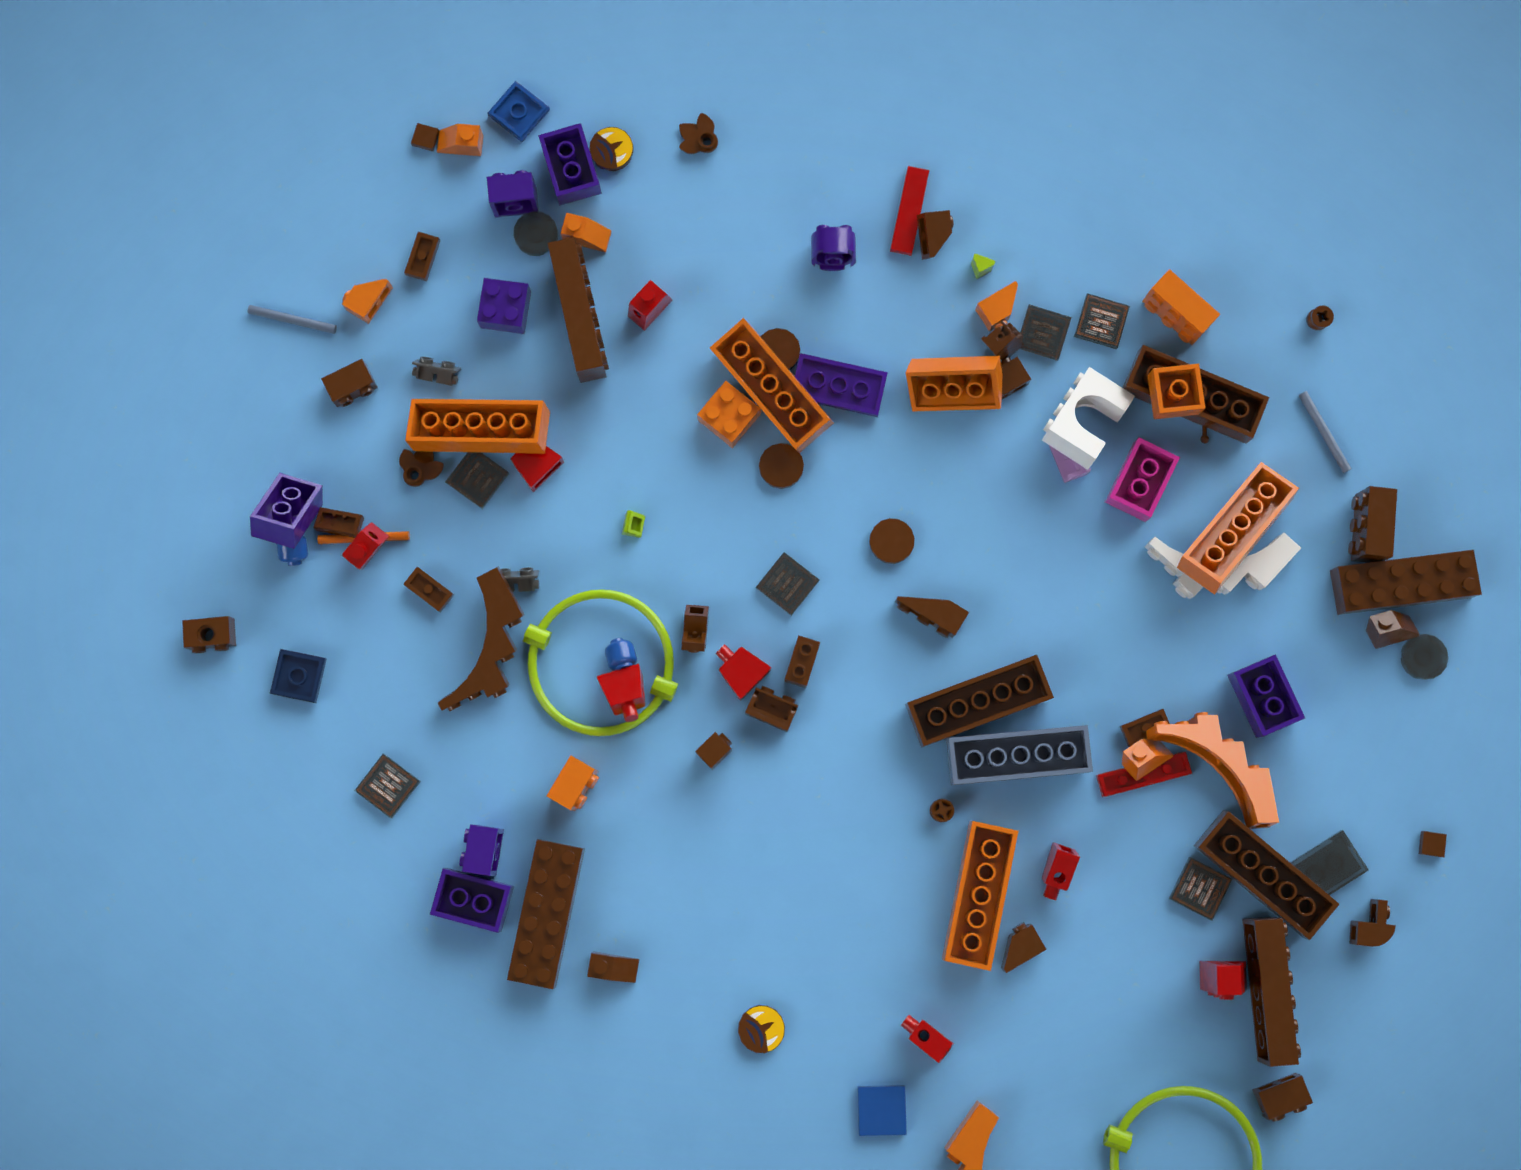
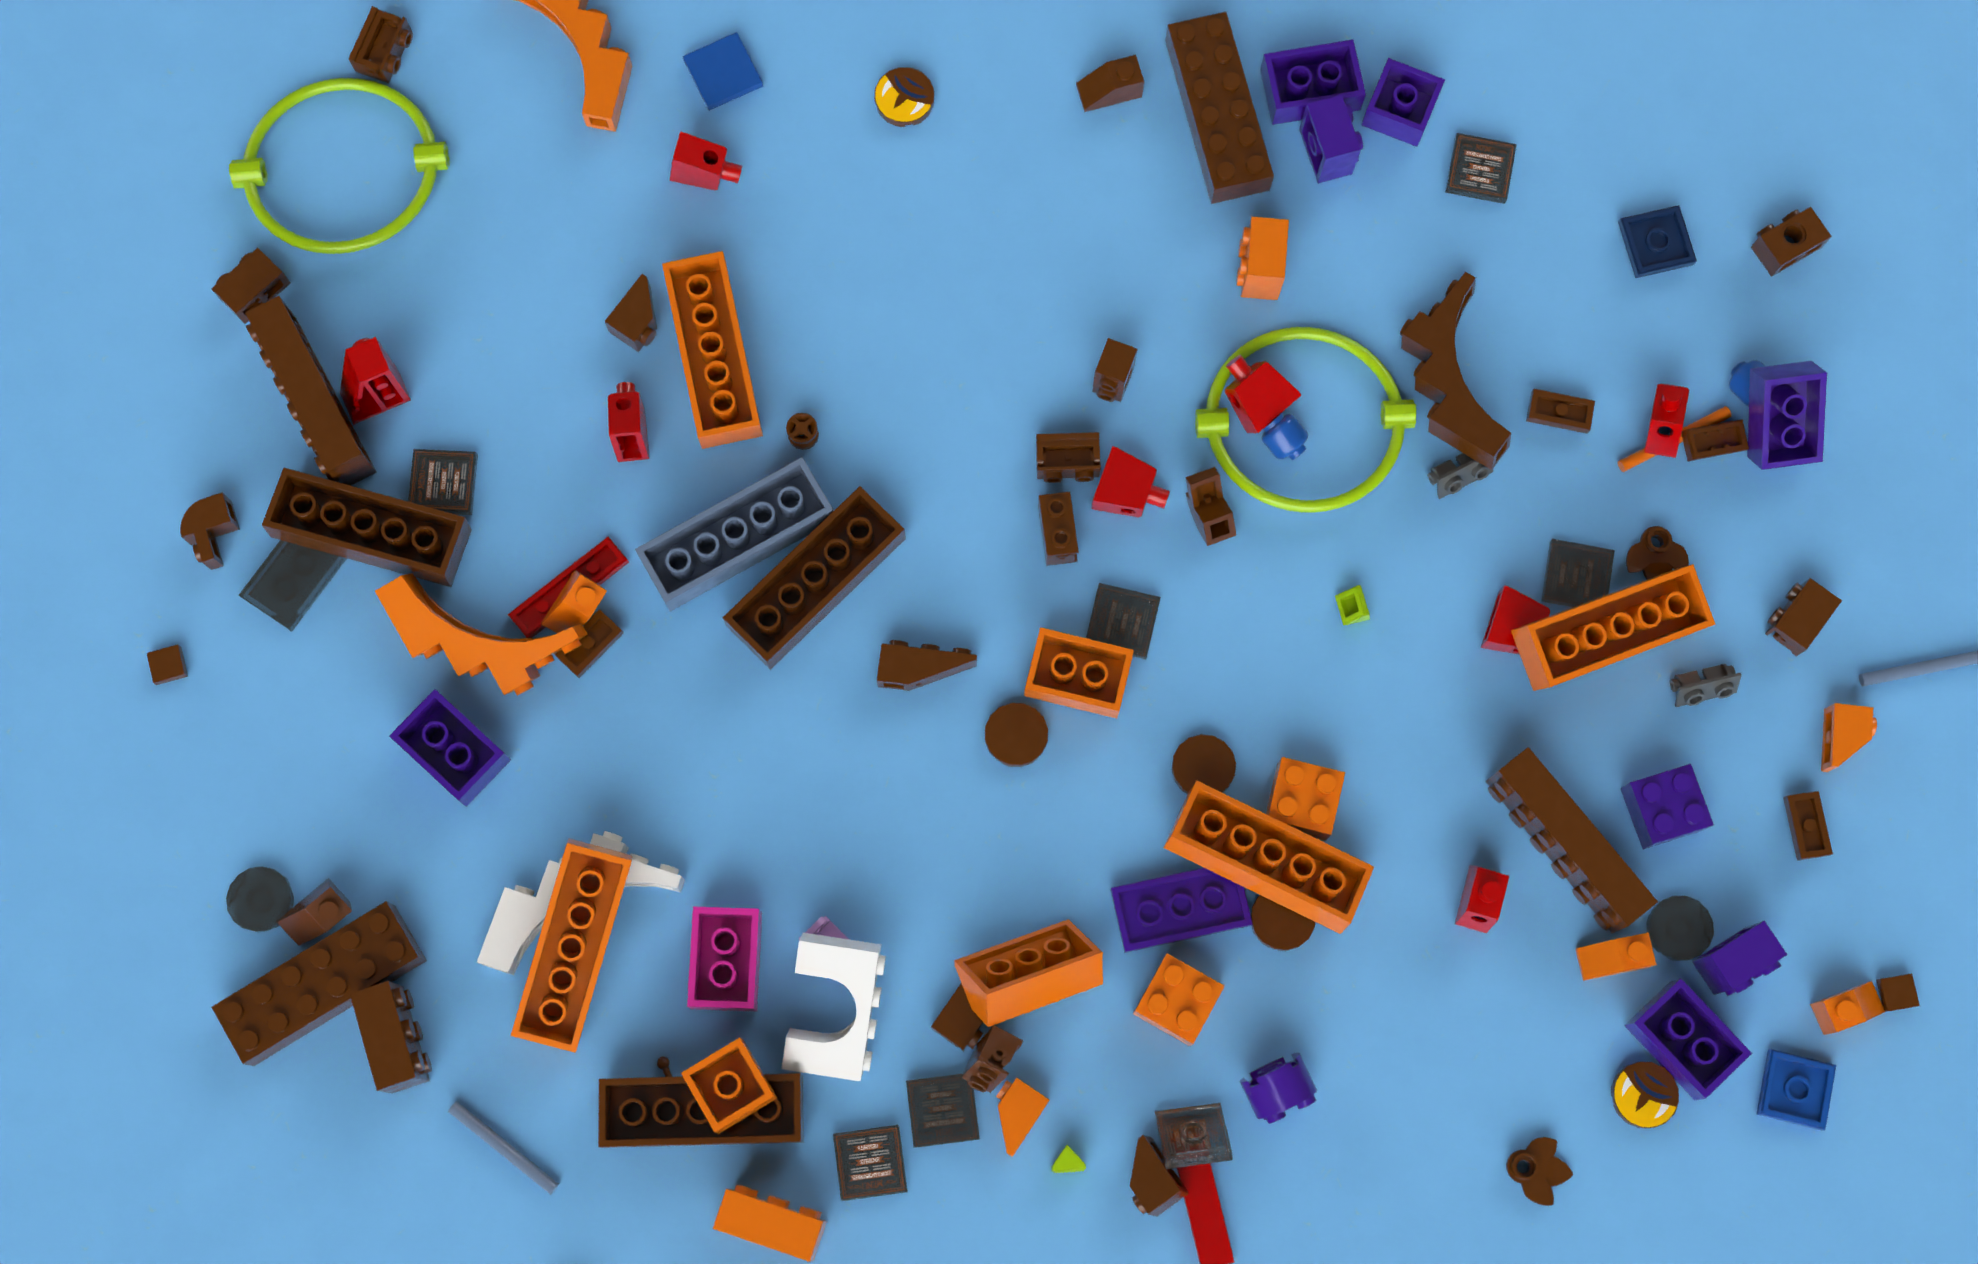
camera: 155 degrees right, 5 degrees down
(417, 855) = (1402, 102): none -> dark purple brick
(834, 558) = (1078, 673): none -> orange brick
(868, 328) = (1178, 999): none -> orange brick
(899, 244) = (1193, 1135): none -> clear smoke tile

